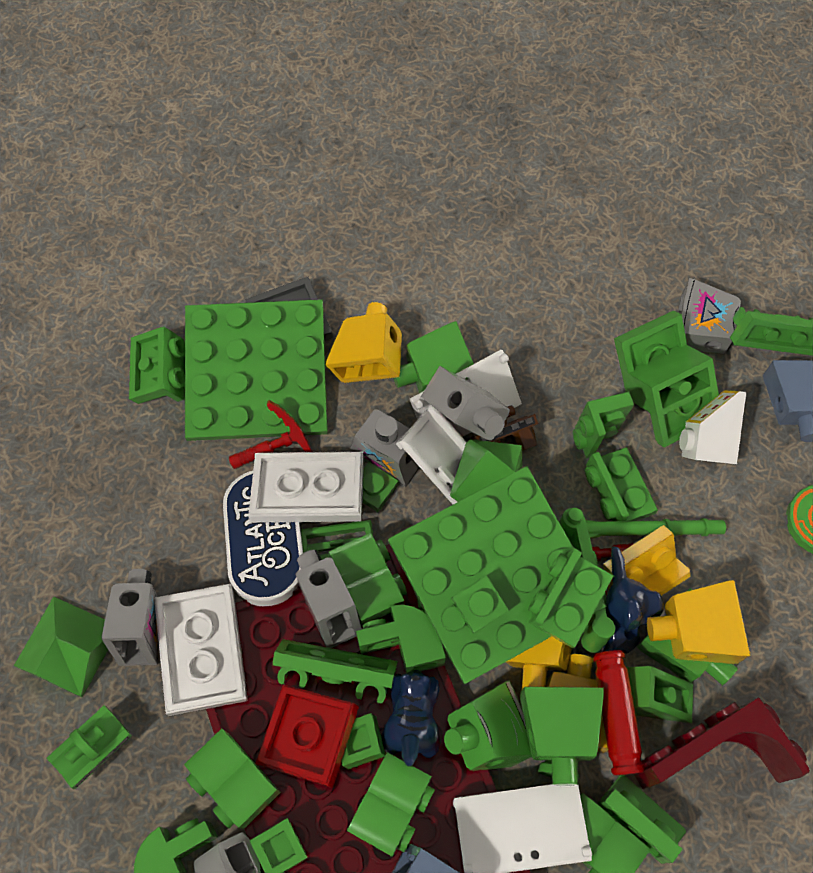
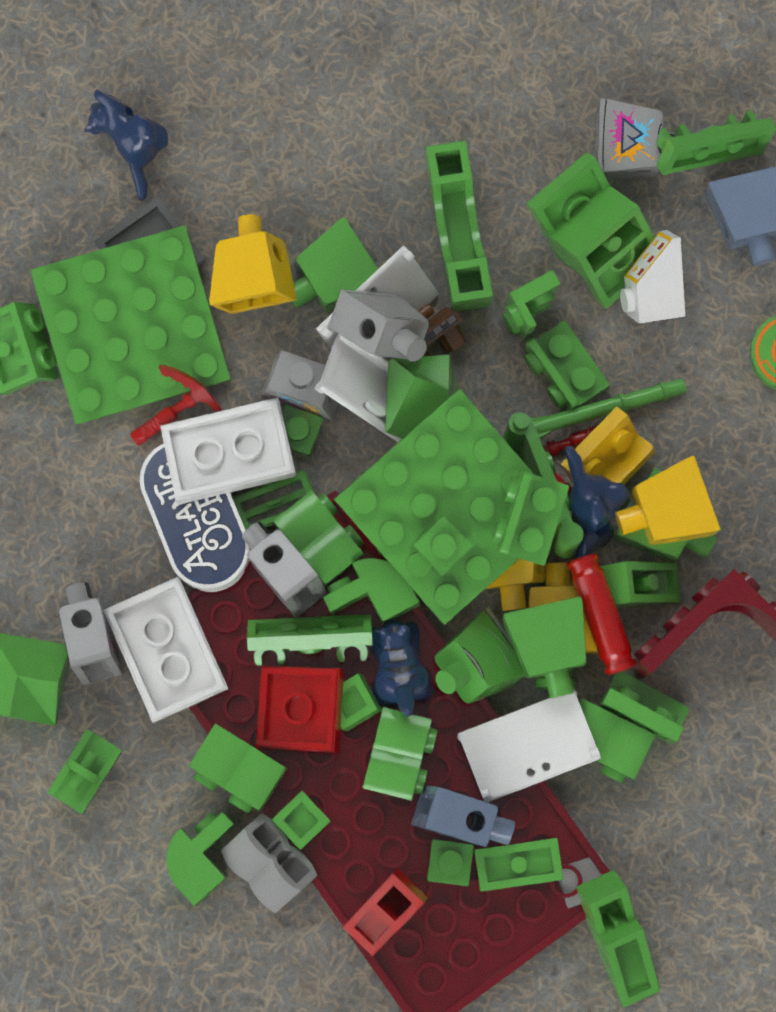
camera: 15 degrees left, 15 degrees up
(300, 228) = (134, 135): none -> dark blue animal
(549, 339) = (457, 226): none -> bright green arch

